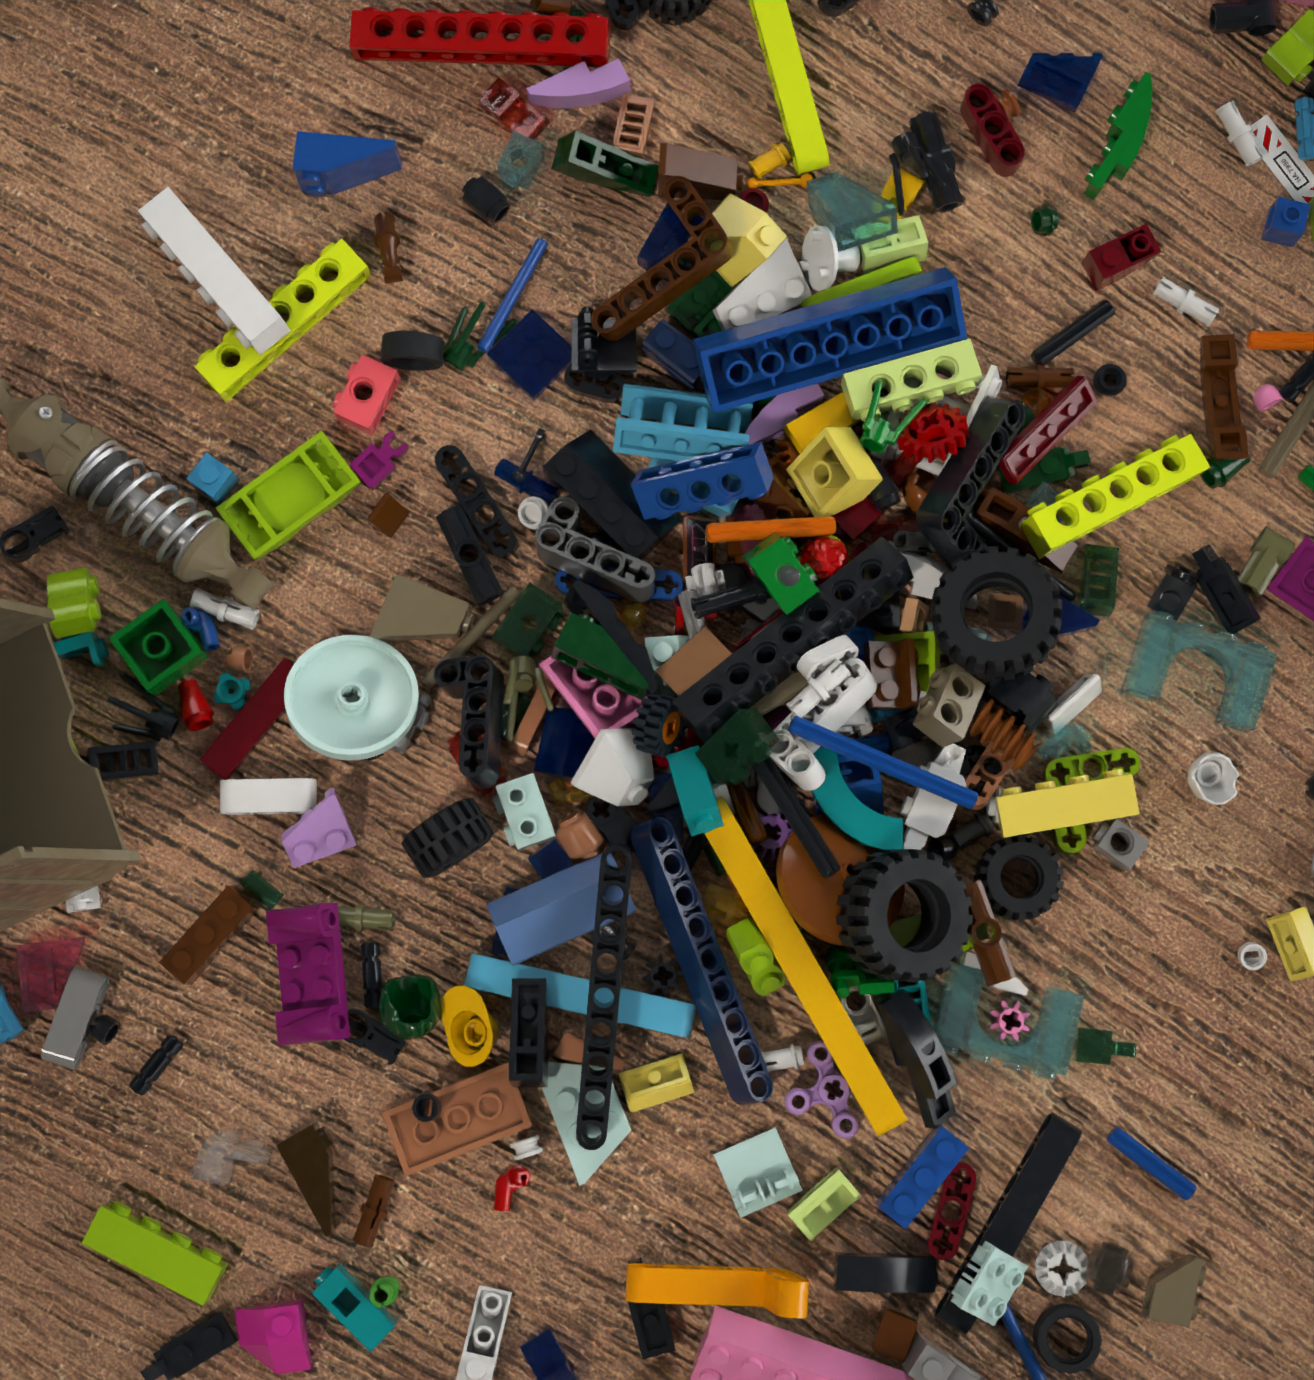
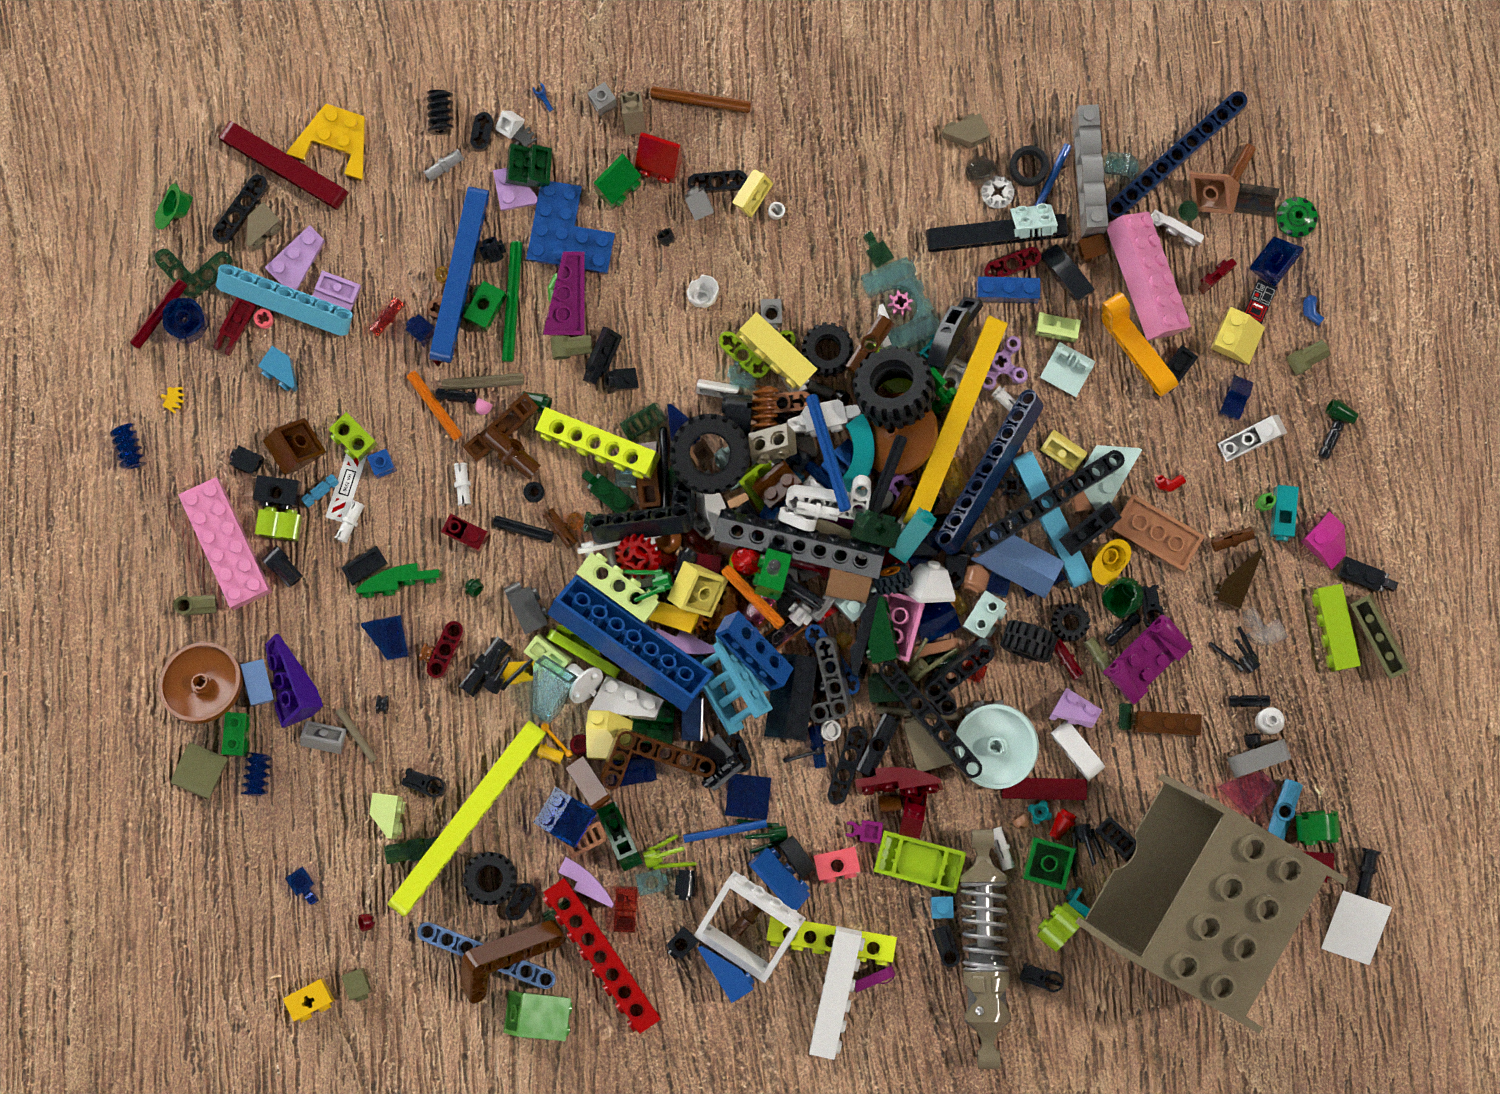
camera: 125 degrees left, 0 degrees up
(97, 1301) = (1380, 636): none -> olive brick
(108, 1068) = (1269, 721): none -> white head
(165, 449) = (945, 943): none -> black piece
(193, 340) = (875, 978): none -> magenta piece
(202, 625) = (1018, 852): blue arm -> none
(204, 1102) = (1248, 660): none -> black plant
(353, 534) = (913, 815): none -> dark red slope
(364, 195) = (734, 950): none -> white window
(388, 873) = (1067, 659): none -> dark red pin
(398, 552) = (906, 779): none -> dark red slope
(400, 305) = (780, 878): none -> blue slope
(413, 907) = (1061, 631): none -> black tyre
(419, 156) = (690, 939): none -> black brick
(421, 1107) = (1167, 552): black hinge -> none
(431, 628) = (940, 725): none -> black beam
(526, 1147) = (1144, 488): white bush -> none
(545, 189) = (654, 857): none -> lime plant
(679, 114) = (564, 817): none -> clear blue slope
(755, 957) = (968, 446): lime brick -> none
(974, 259) = (526, 607): none -> dark grey hinge
(1047, 429) = (587, 502): dark red tile -> none
(1151, 1163) = (914, 187): blue axle -> none
(1170, 114) = (364, 565): none -> black tile
(1183, 385) = (511, 452): none -> reddish brown piece
(1244, 665) = (633, 316): clear light blue arch -> none

